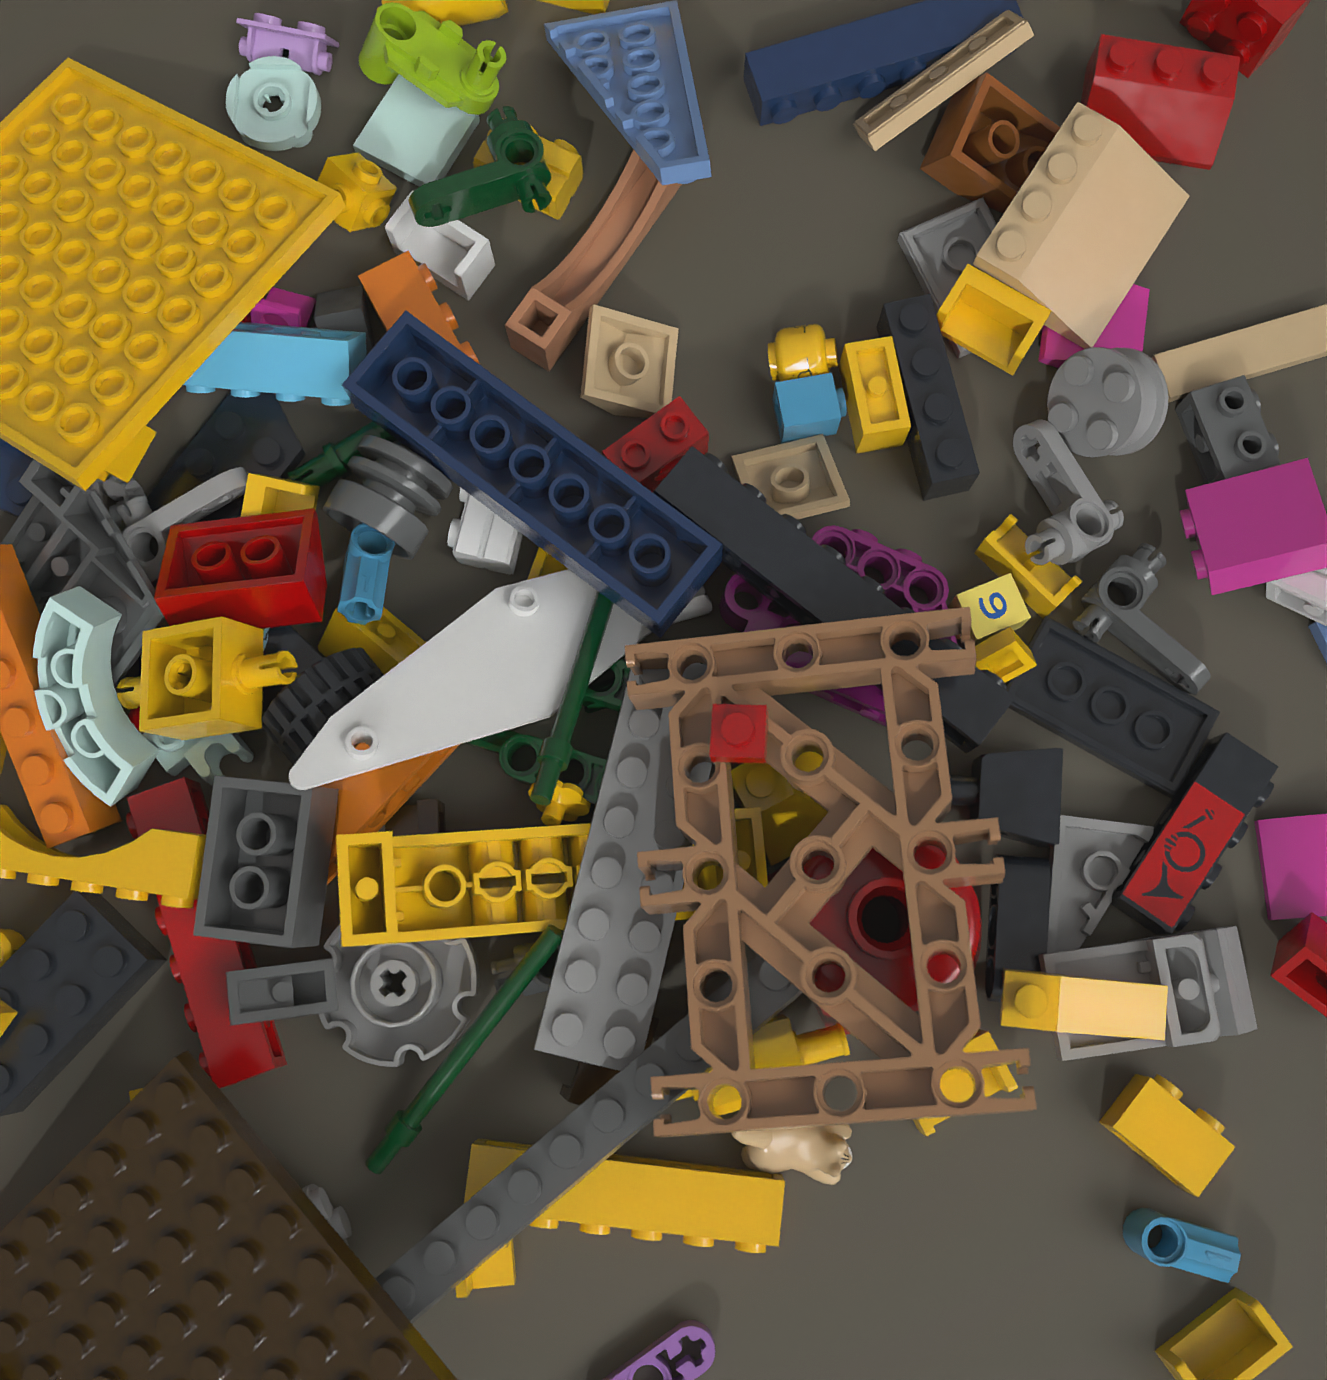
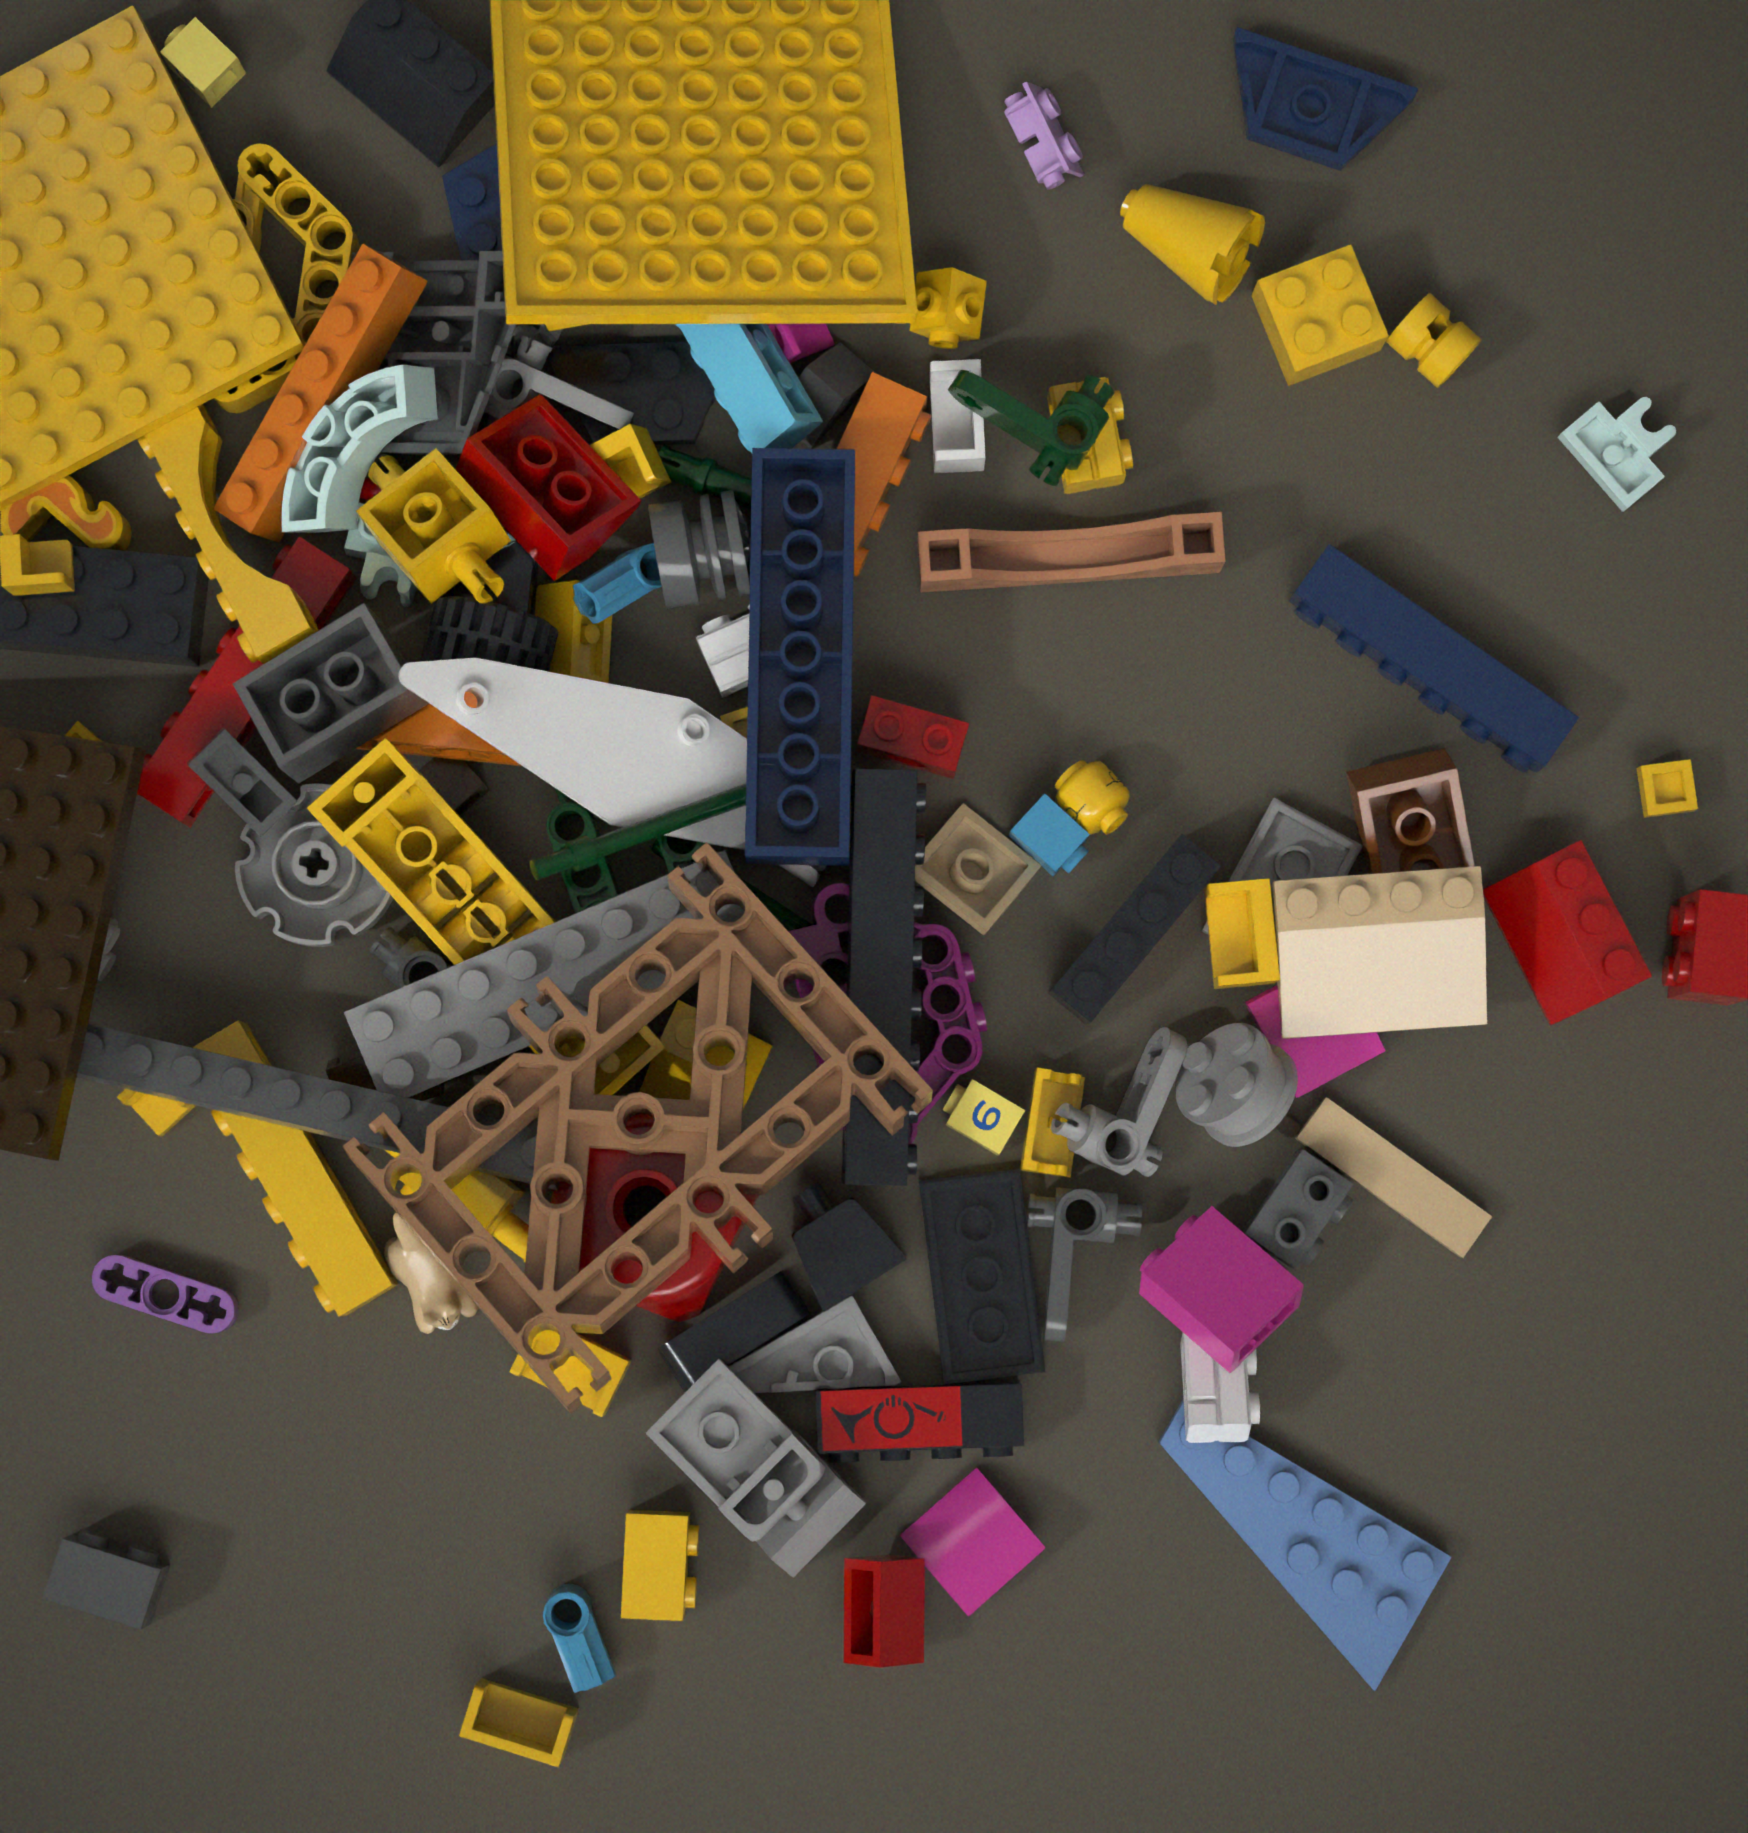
camera: 50 degrees right, 5 degrees up
(280, 129) = (977, 198): light aqua plate -> none
(407, 1123) = (216, 958): dark green bar -> none
(414, 134) = (1049, 310): light aqua tile -> none
(431, 58) = (1116, 279): lime piece -> none
(565, 804) = (558, 889): yellow plant -> none
(628, 363) = (975, 656): tan slope -> none
(642, 81) = (1233, 469): medium blue wing -> none
(739, 733) = (696, 984): red plate -> none
(874, 394) = (1102, 883): yellow panel -> none
(943, 79) = (1434, 732): tan tile -> none
(1004, 655) = (950, 1156): yellow plate -> none
(1083, 1005) = (695, 1411): yellow slope -> none

